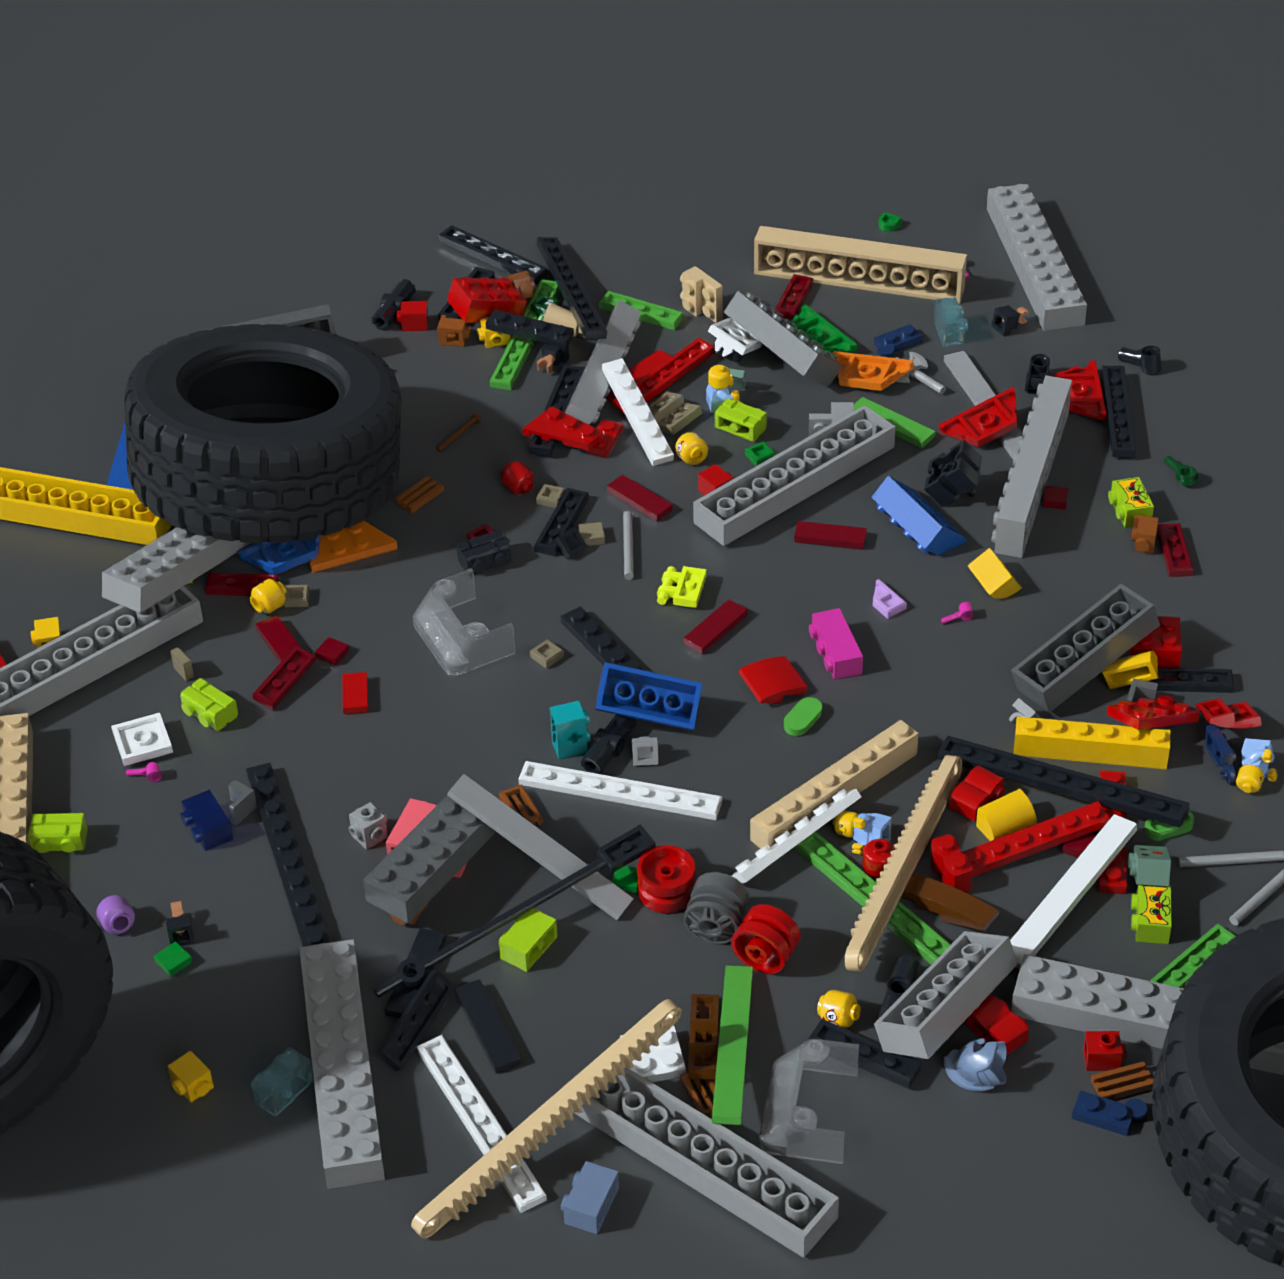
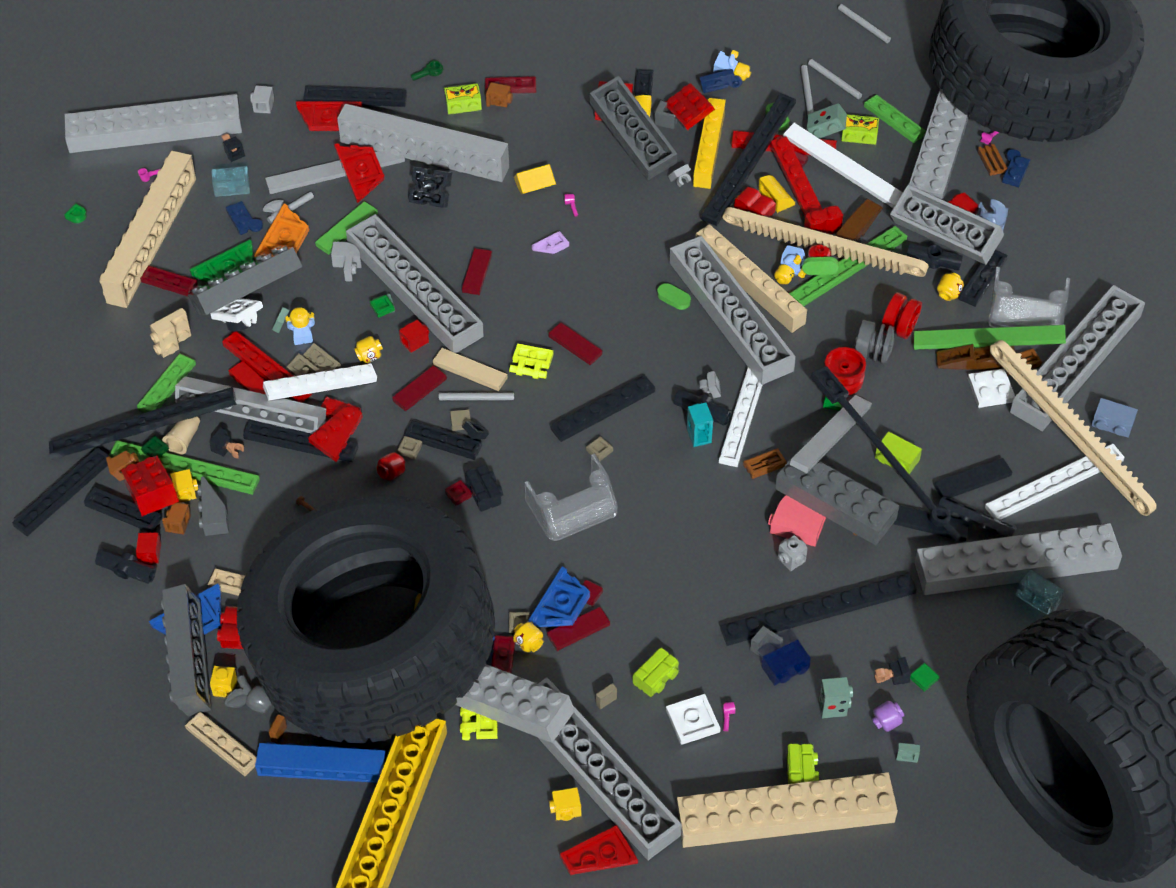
camera: 90 degrees left, 10 degrees up
(141, 854) = (835, 697): none -> sand green brick
(284, 677) = (624, 621): dark red tile -> none
(318, 623) = (561, 602): none -> blue wing
(355, 692) = (639, 573): red tile -> none
(462, 354) = (214, 512): none -> dark grey slope
(529, 328) = (199, 452): black plate -> none
(648, 696) = (668, 376): blue slope -> none
(668, 538) = (470, 369): none -> tan tile
(740, 420) = (334, 317): lime brick -> none
(764, 761) = (732, 310): none -> light grey brick
(772, 679) = (637, 310): red slope -> none
(787, 840) = (816, 313): white plate -> none
(836, 644) = (603, 270): dark pink brick -> none
(858, 855) = (820, 266): none -> bright green tile
(917, 517) = (467, 217): slope -> none
(1038, 368) = (305, 135): black piece -> none
(1095, 335) = (262, 99): none -> light grey brick
(1103, 1050) = (973, 163): red brick -> none
(1148, 358) = (298, 74): black pin -> none
(1231, 716) = (686, 71): red slope -> none

